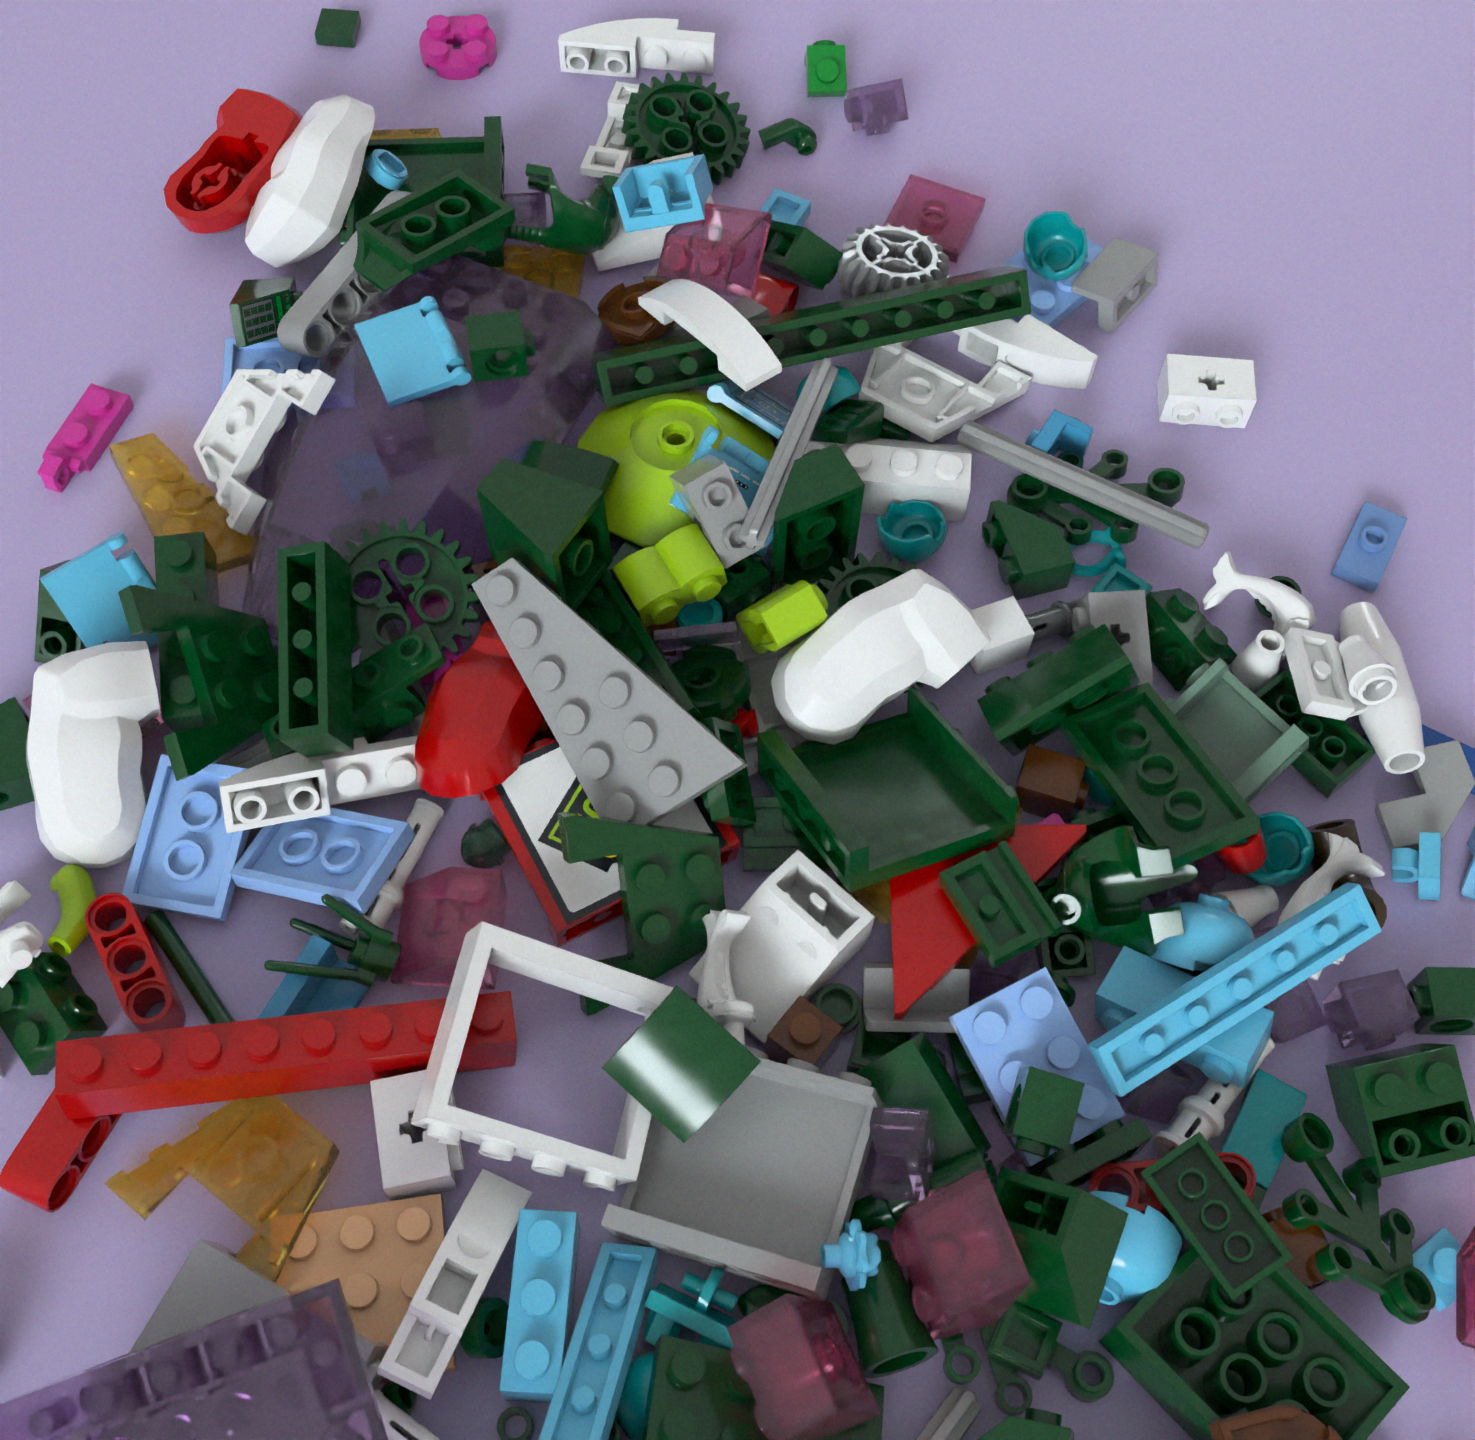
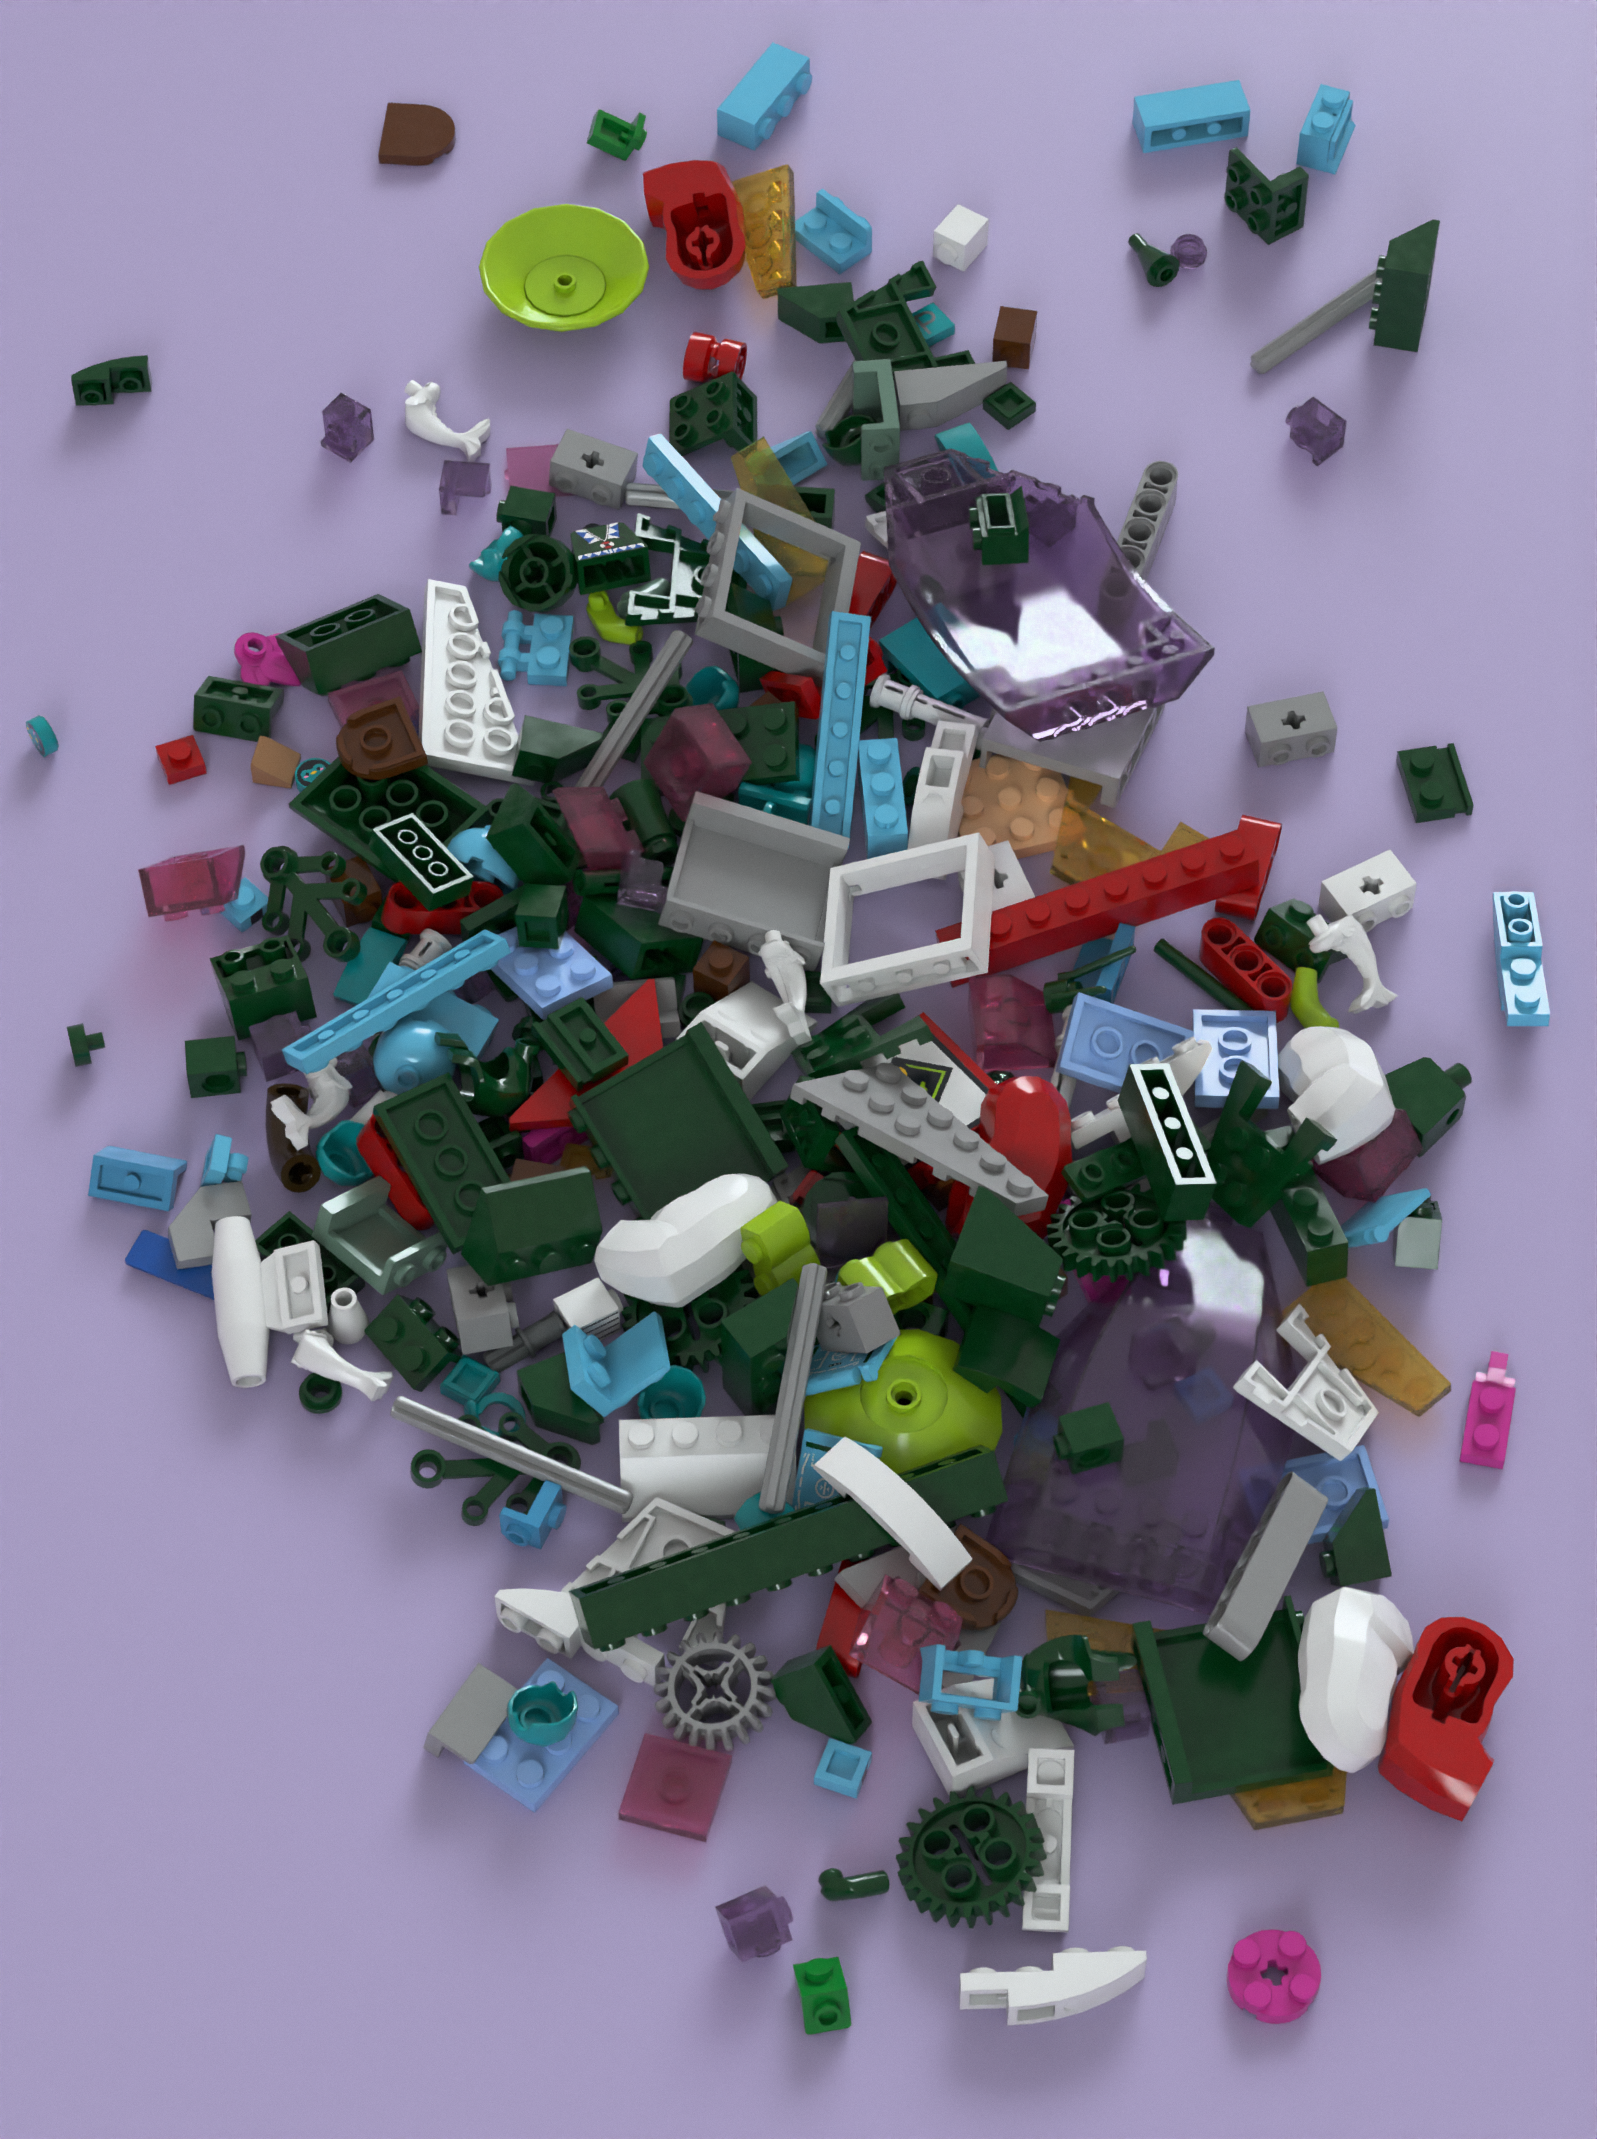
camera: 175 degrees right, 5 degrees down
(337, 27) = (1427, 1985): dark green tile -> none
(386, 169) = (1281, 1714): medium azure tile -> none
(412, 352) = (1174, 1439): medium azure piece -> none
(430, 228) = (1191, 1575): dark green slope -> none
(681, 1064) = (807, 916): dark green slope -> none
(850, 422) = (717, 1511): dark green slope -> none
(854, 1255) = (670, 825): medium azure plant -> none
(973, 552) = (619, 1371): none -> medium azure bracket
(1206, 391) = (360, 1608): white brick -> none
(1367, 672) = (262, 1278): white cone -> none
(1369, 546) = (226, 1460): medium blue plate -> none

